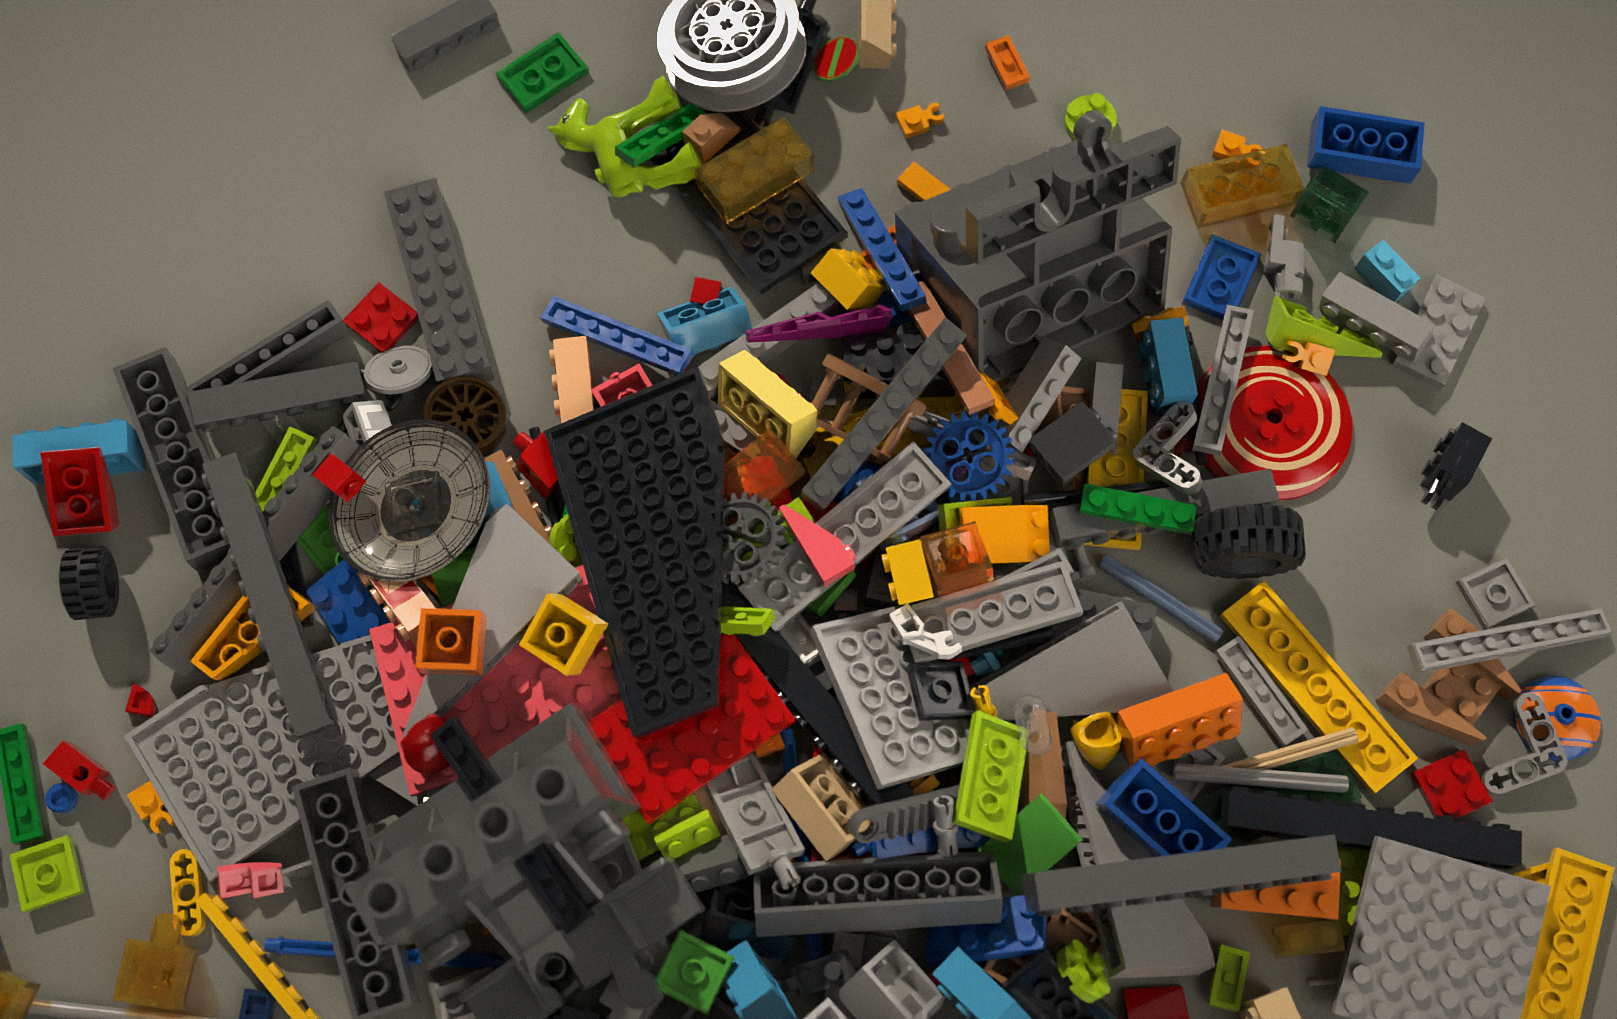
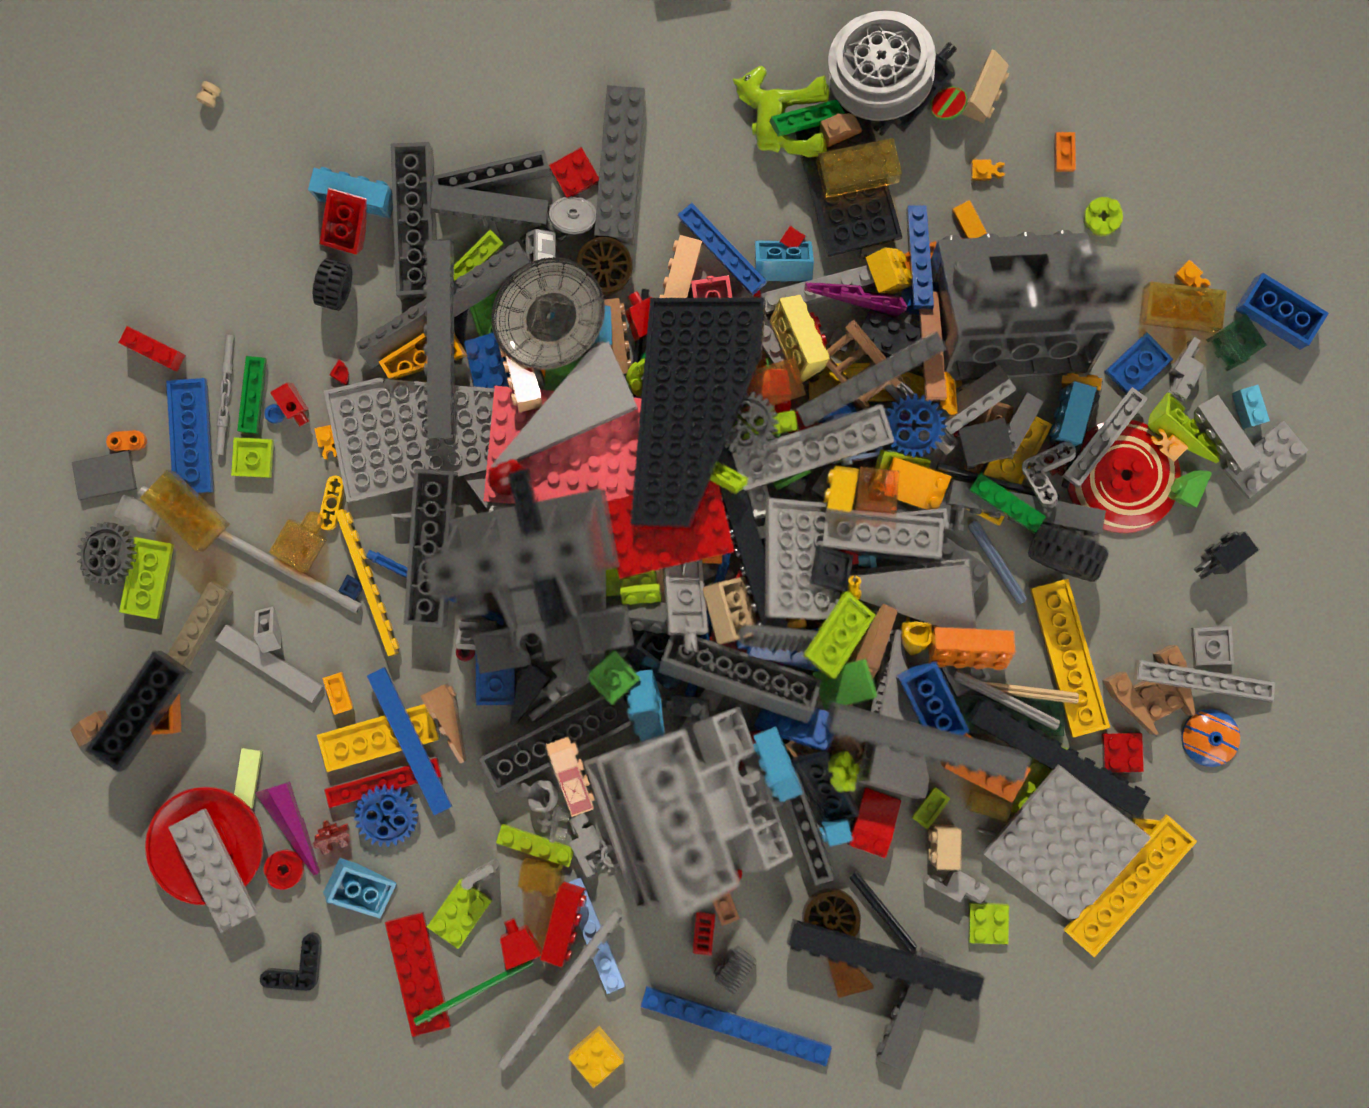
camera: 25 degrees right, 15 degrees up
(254, 878) = (371, 509): coral slope -> none
(339, 478) = (509, 281): red brick -> none
(451, 641) = (541, 420): orange brick -> none
(542, 72) = (745, 33): green tile -> none
(563, 634) = (612, 441): yellow brick -> none
(821, 548) = (794, 452): coral slope -> none
(920, 639) = (833, 535): white piece -> none
(944, 826) = (797, 654): light grey pin -> none
(1031, 724) = (878, 613): clear plate -> none
(1261, 691) = (1033, 646): light grey plate -> none
(1363, 402) = (1190, 488): none -> bright green slope
(1539, 749) = (1188, 753): light grey beam -> none

